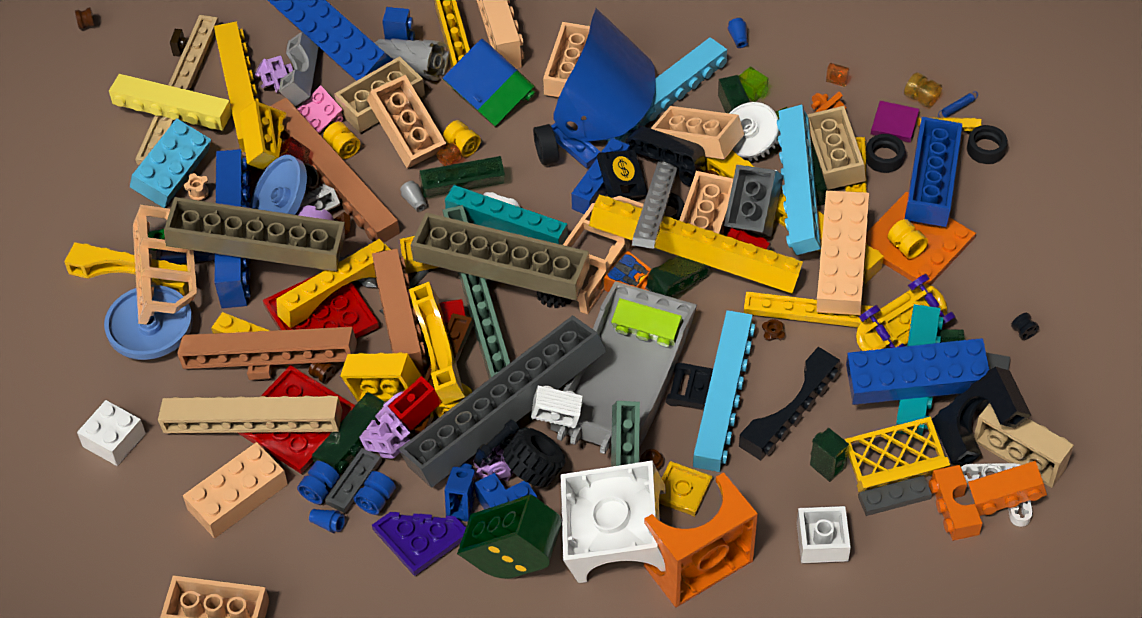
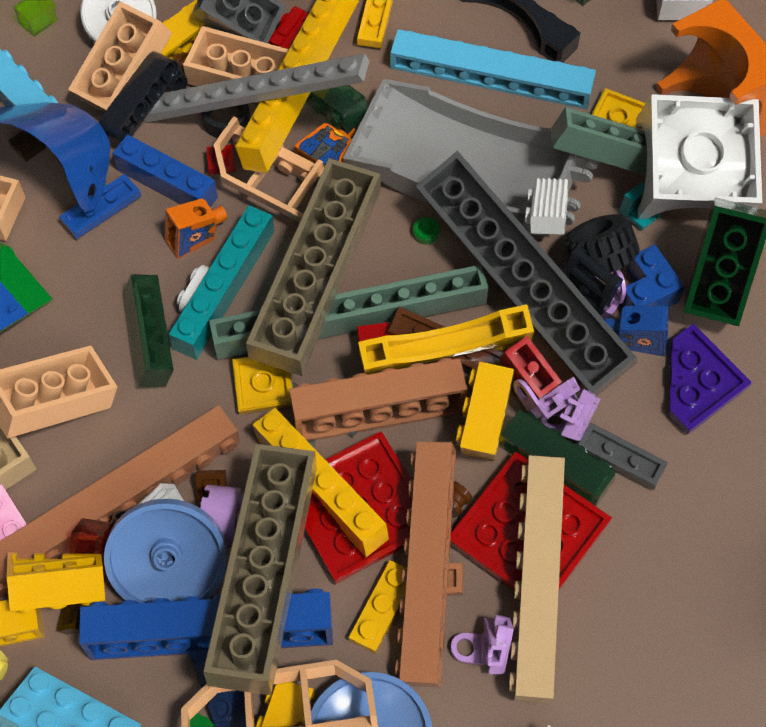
camera: 90 degrees left, 10 degrees up
(196, 187) = (111, 682): light nougat brick -> none
(204, 388) = (490, 647): none -> lavender piece
(235, 490) = (646, 596): light nougat brick -> none
(318, 481) = (632, 494): blue wheel -> none
(328, 519) = (680, 484): blue cone -> none
(341, 140) = (55, 486): yellow wheel -> none
(374, 493) = (644, 427): blue wheel -> none
(412, 194) = (166, 394): light grey cone -> none
(449, 154) = (104, 349): clear orange wheel -> none
(462, 137) = (77, 332): yellow wheel -> none
(546, 144) = (103, 219): black tyre -> none
(552, 194) = (191, 226): none -> orange torso
(620, 170) = (175, 145): black container -> none
(646, 322) = (407, 128): lime brick -> none
(696, 388) = (487, 94): black plate -> none
(731, 93) = (58, 32): clear green brick -> none
(770, 325) = (407, 20): reddish brown plate -> none

